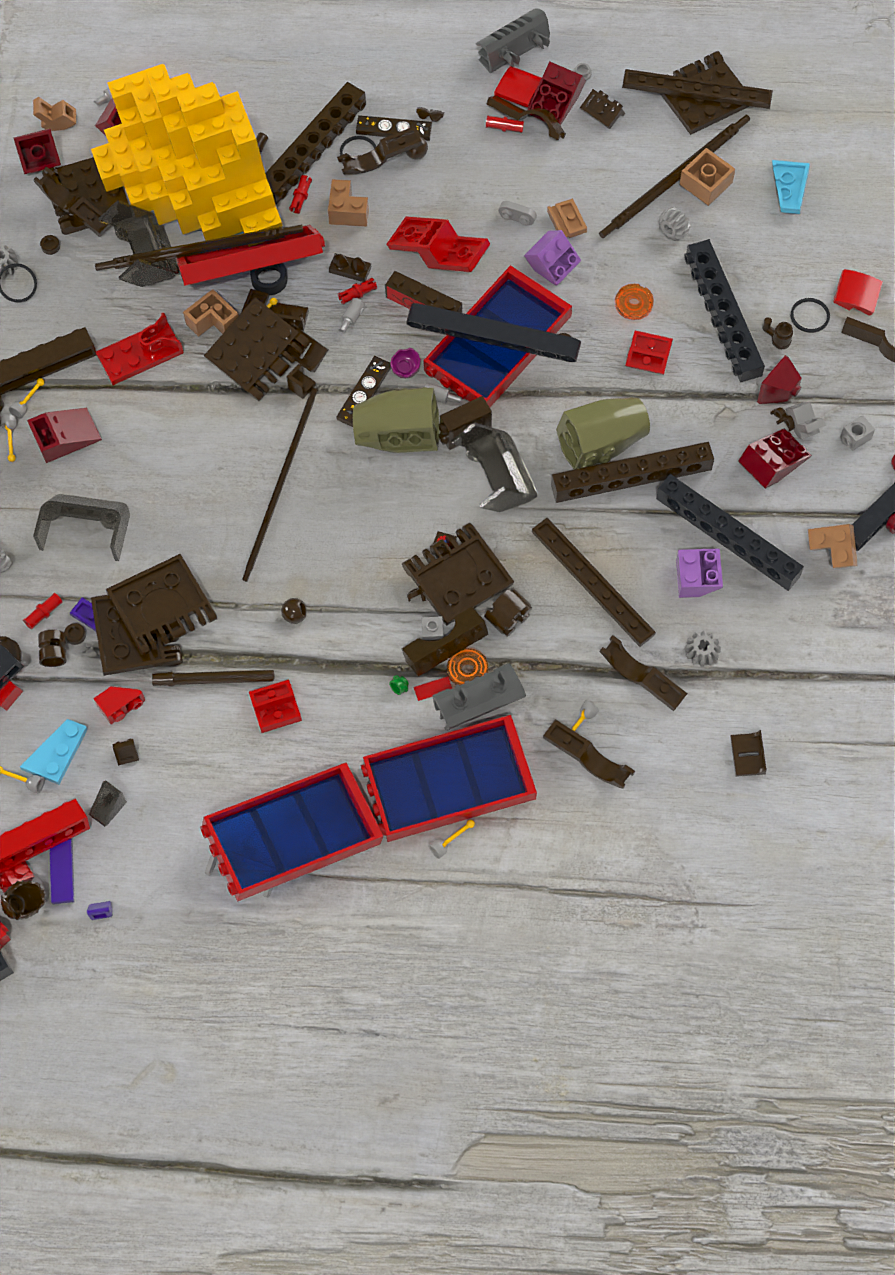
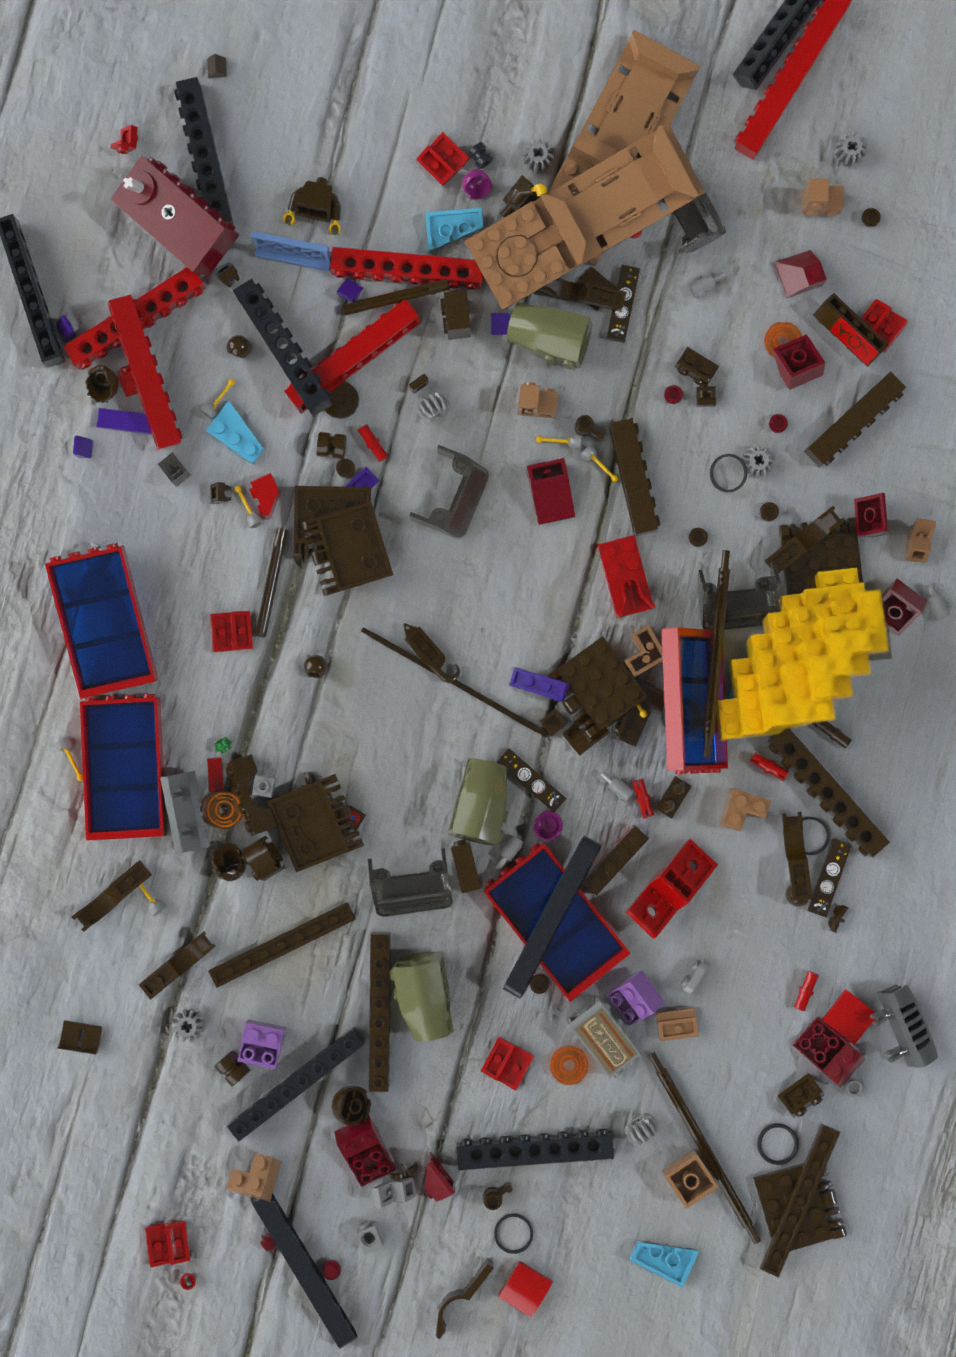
camera: 100 degrees right, 20 degrees up
(86, 297) = (698, 537): none -> dark brown plate
(147, 710) = (254, 519): none -> hinge
(254, 509) = (428, 652): none -> dark brown plate
(265, 401) = (539, 684): none -> dark purple tile
(518, 113) = (815, 1009): dark brown piece -> none
(520, 645) = (228, 862): none -> dark brown hair
(596, 275) = (603, 1037): none -> slope
(649, 134) = (778, 1125): none -> black tyre
(733, 593) = (233, 1070): none -> dark brown wheel
(734, 476) = (351, 1105): none -> dark brown cylinder

